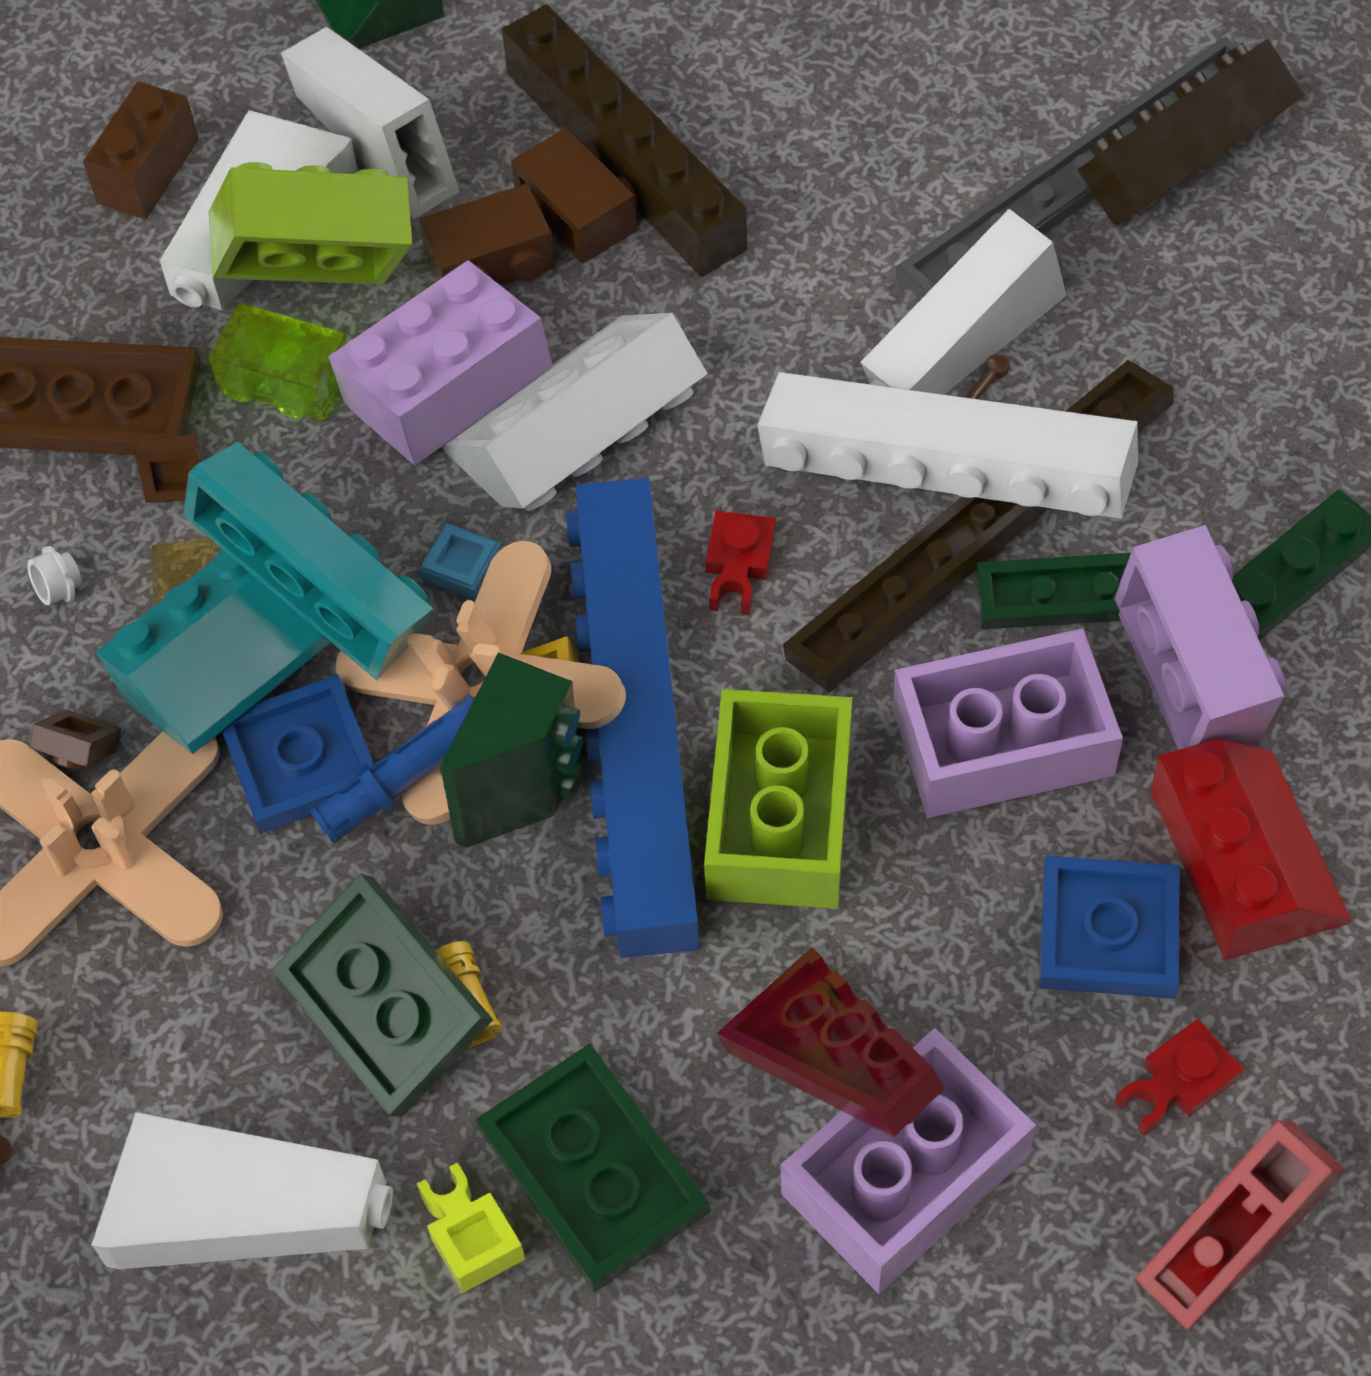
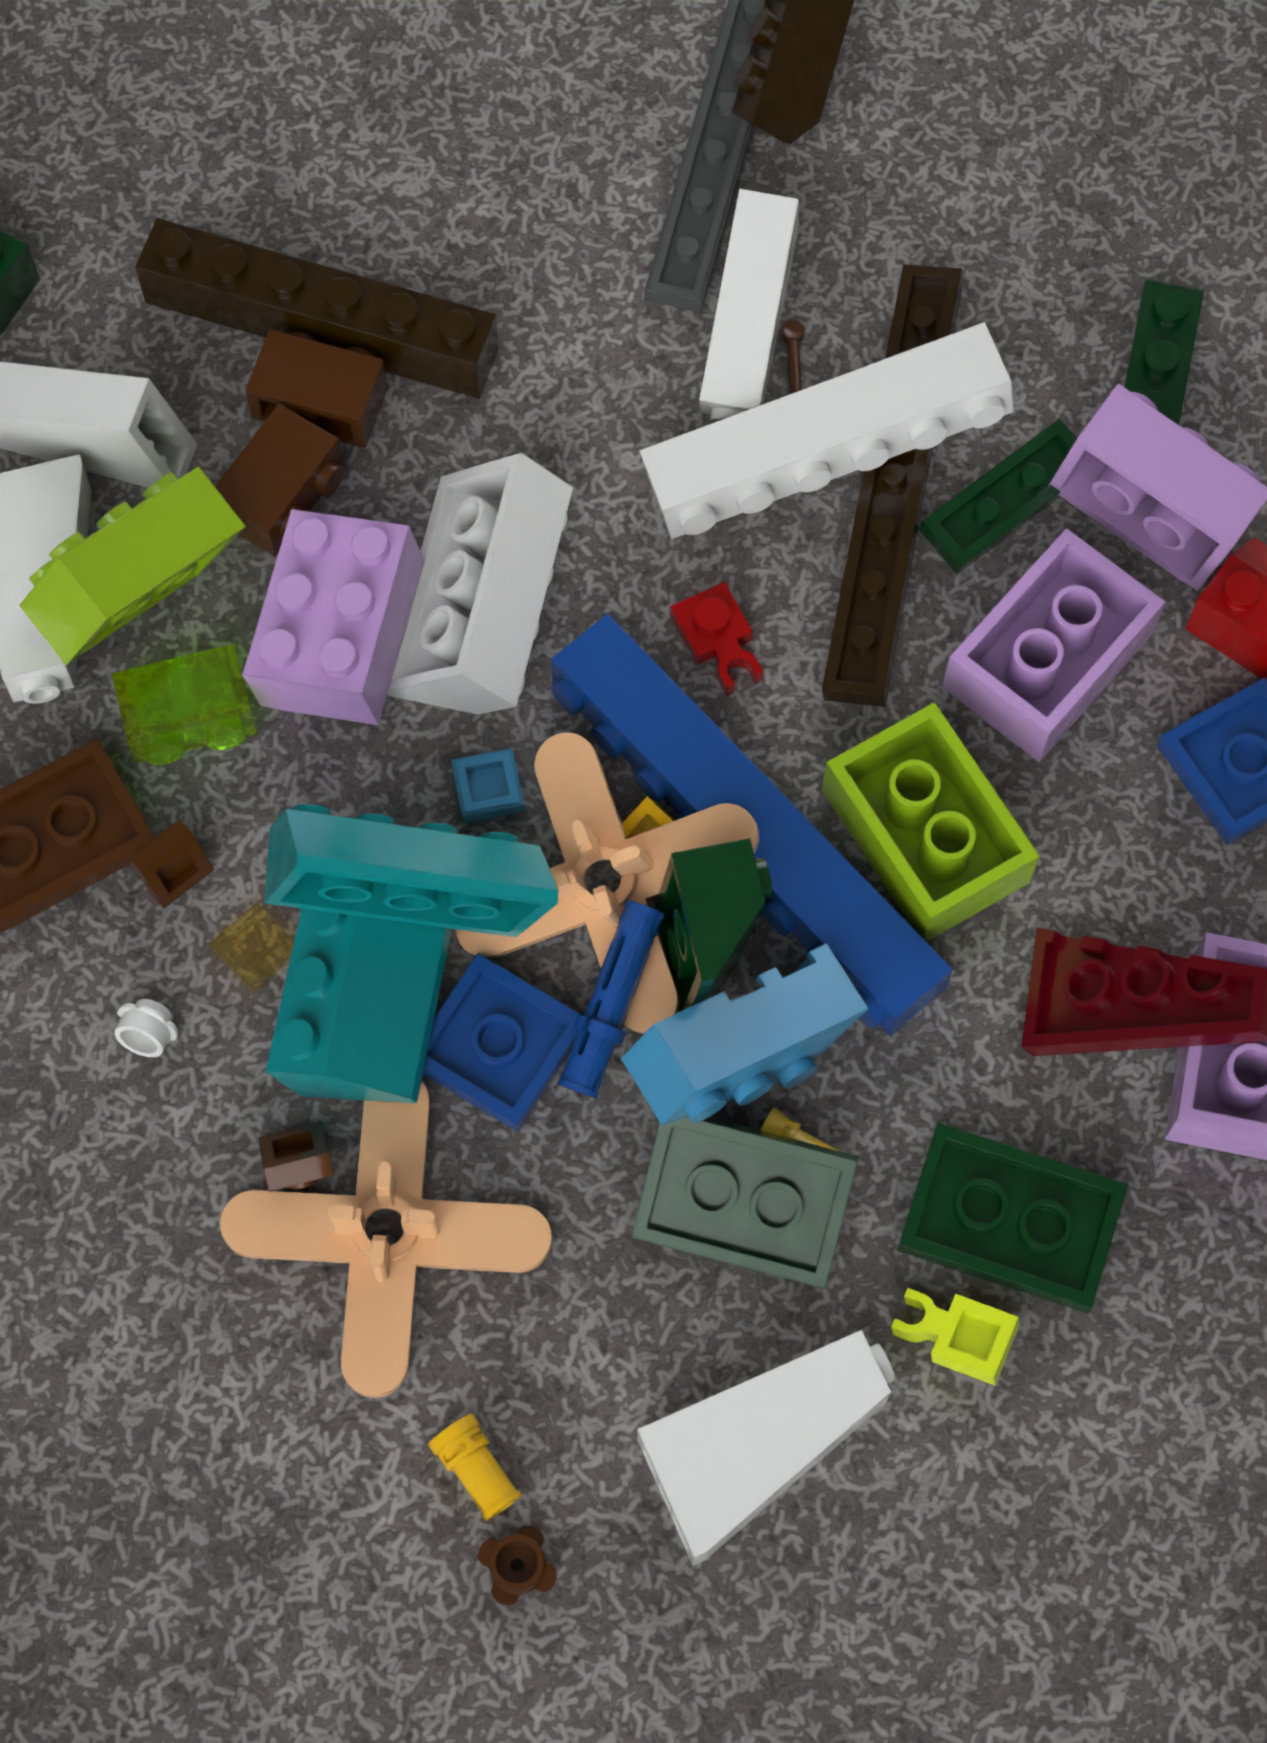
camera: 40 degrees left, 10 degrees up
(467, 863) = (744, 1043): none -> dark azure wedge

